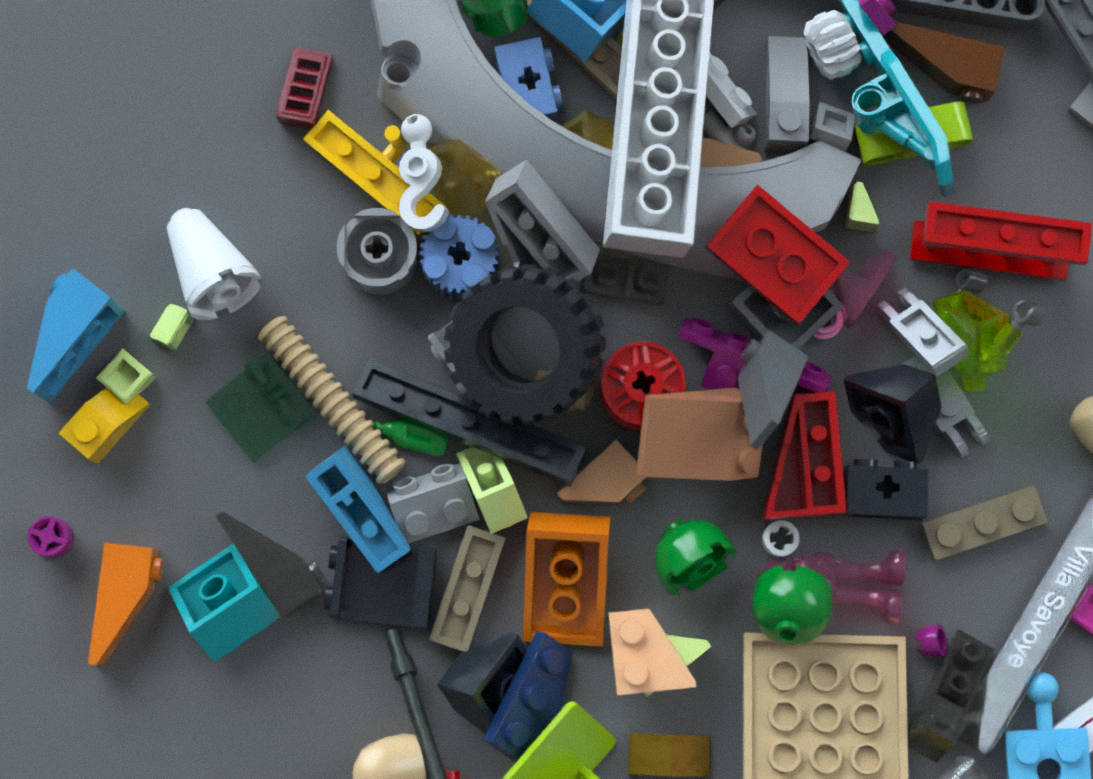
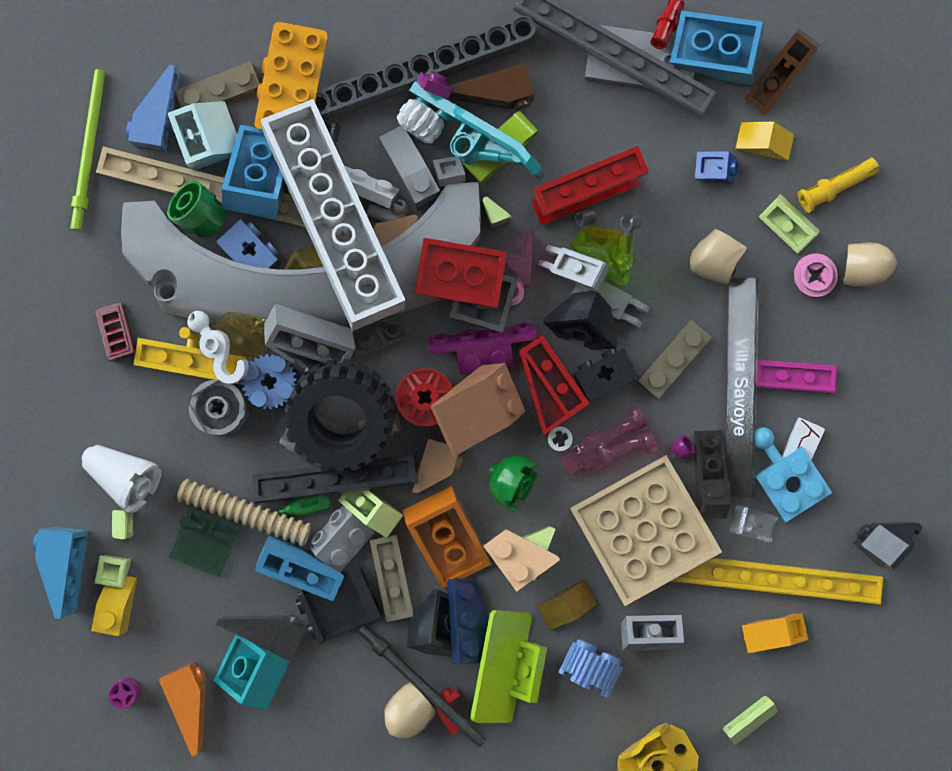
camera: 30 degrees left, 5 degrees up
(768, 383) = (499, 355): dark grey slope -> none
(792, 604) = (589, 476): green cylinder -> none

